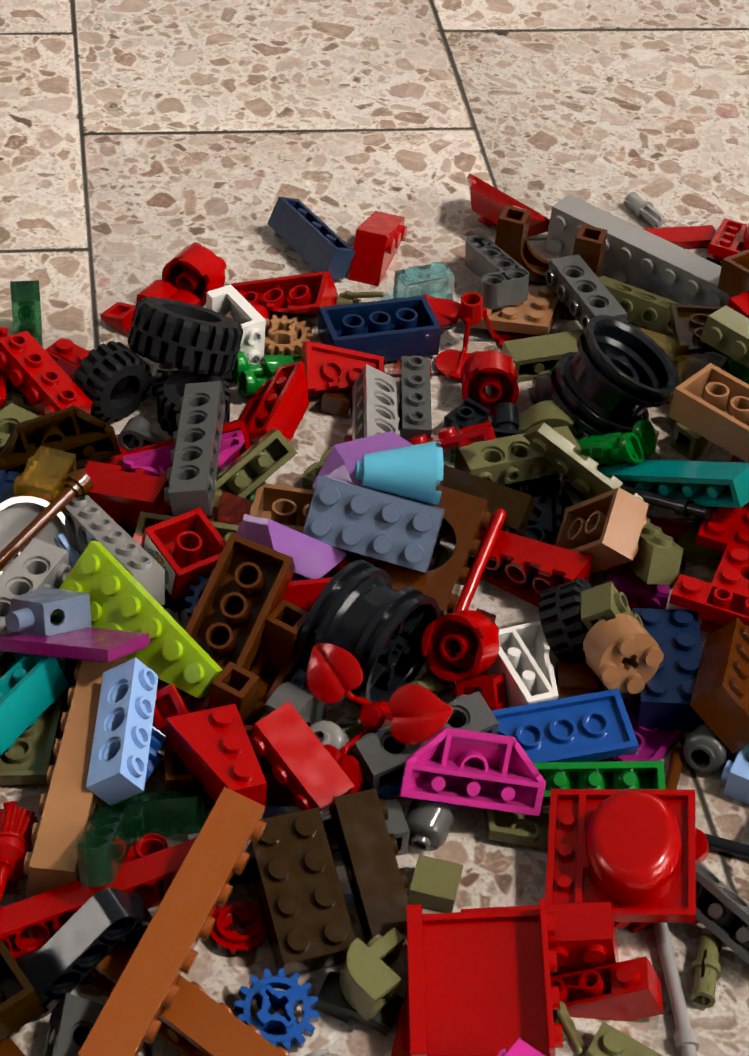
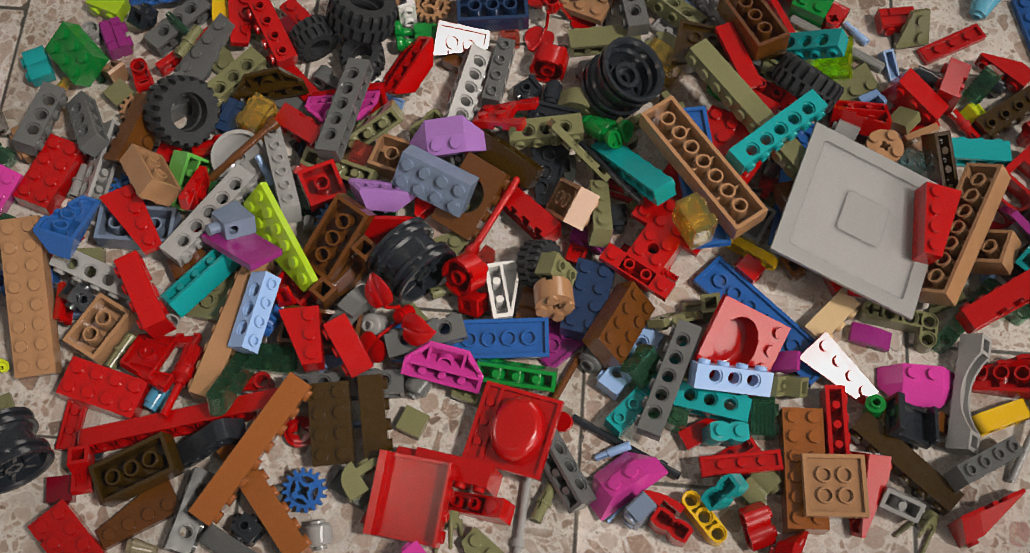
camera: 15 degrees right, 25 degrees up
(404, 471) = (455, 154): medium azure cone -> none

